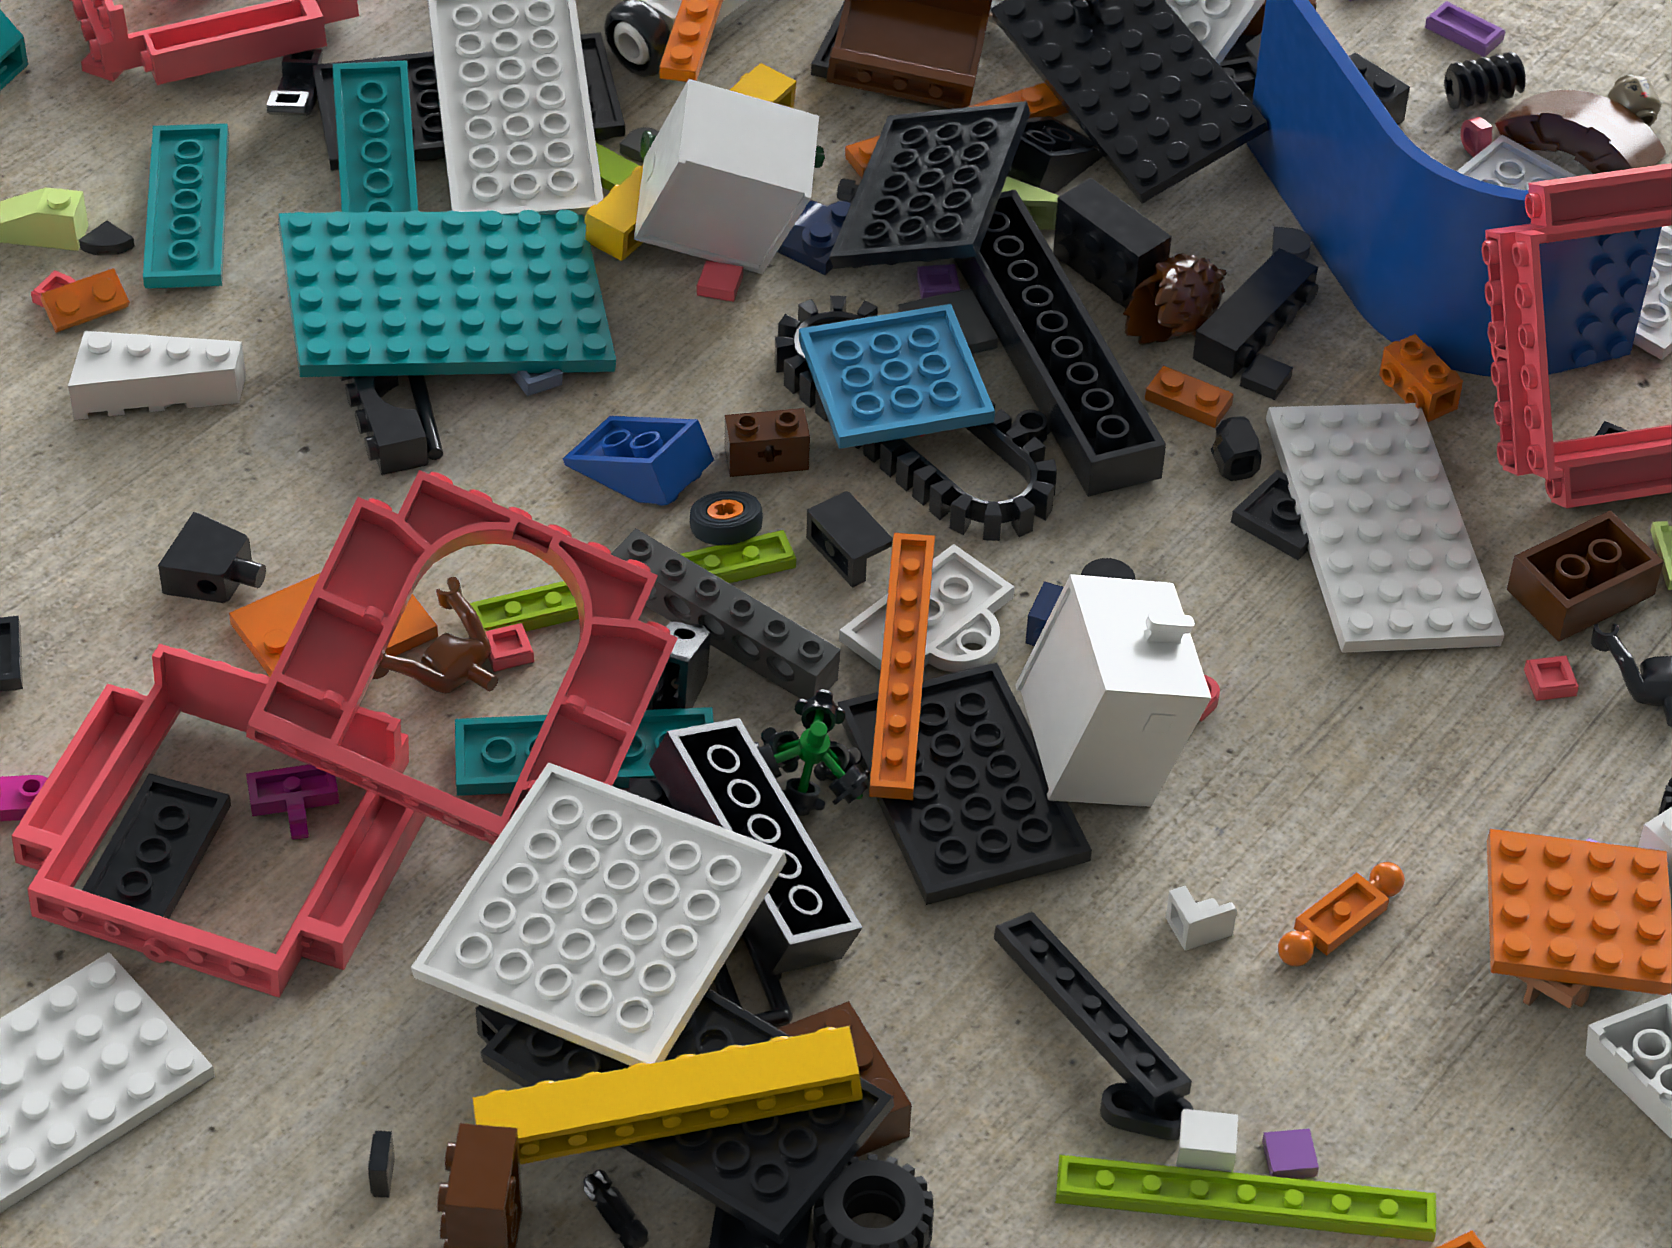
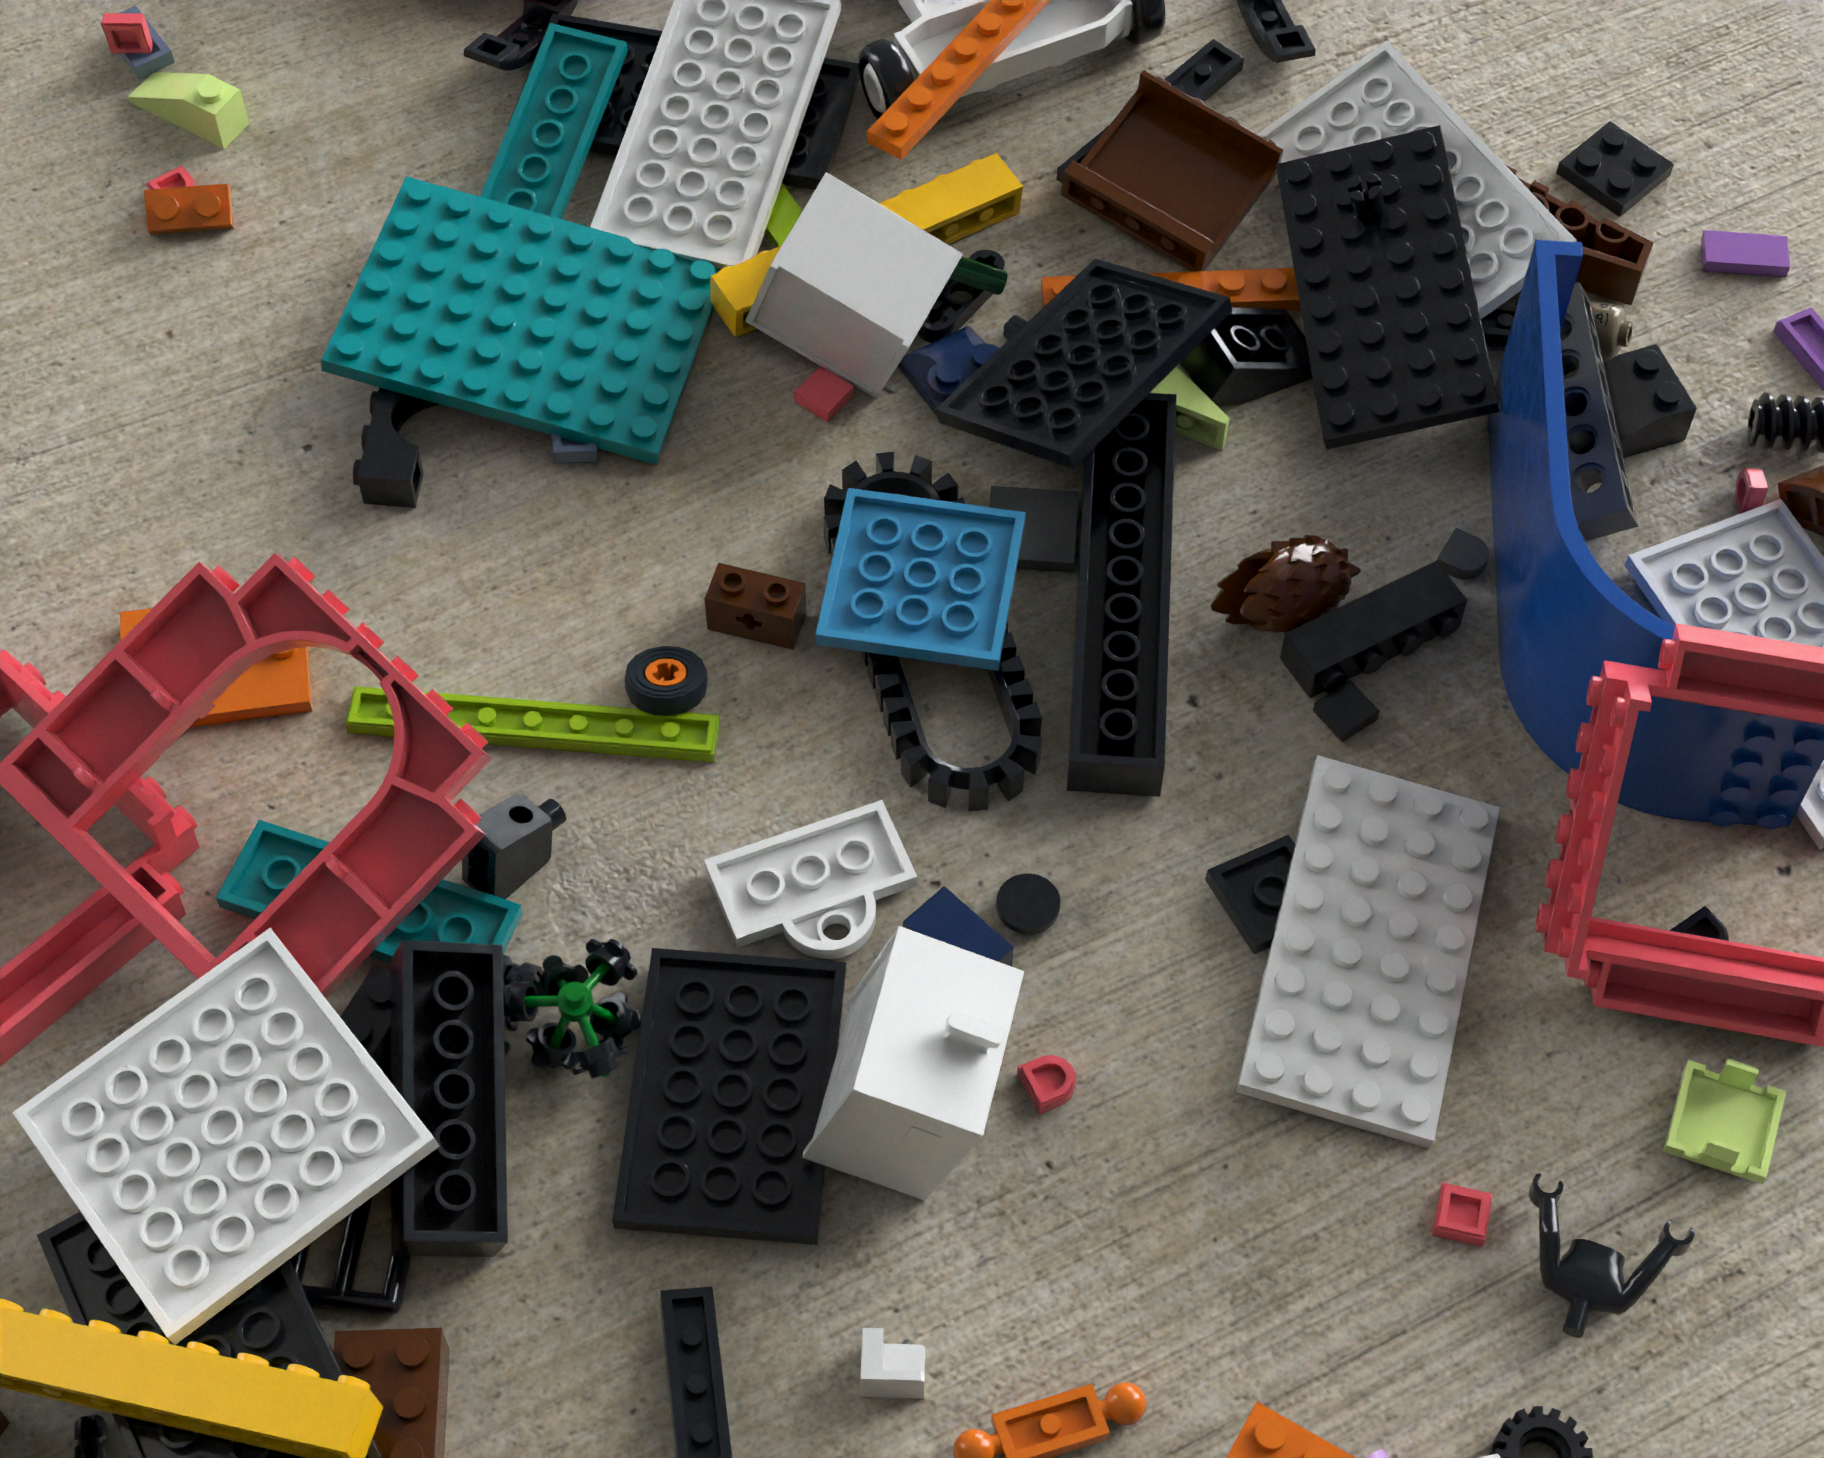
camera: 25 degrees right, 10 degrees up
(106, 238) = (251, 146): black tile -> none
(153, 372) = (199, 312): white wedge -> none
(186, 206) = (345, 134): teal plate -> none
(209, 562) = (130, 547): black torso -> none
(291, 792) = (35, 842): magenta plate -> none
(426, 415) = (440, 455): black bar -> none
(449, 659) = (298, 745): reddish brown piece -> none
(509, 647) = (367, 750): coral tile -> none
(643, 456) = (622, 578): blue slope -> none
(735, 620) = (589, 804): dark grey brick -> none
(846, 535) = (776, 747): black panel -> none
(902, 667) = (733, 935): orange plate -> none
(937, 280) = (1050, 475): medium lavender tile -> none
(1035, 423) = (1050, 675): black plate -> none
(1107, 240) = (1246, 487): black brick -> none
(1189, 396) = (1246, 705): orange plate -> none
(1236, 449) = (1256, 792): black rock -> none
(1421, 377) = (1516, 776): orange brick -> none
(1584, 575) = (1563, 1103): reddish brown brick -> none

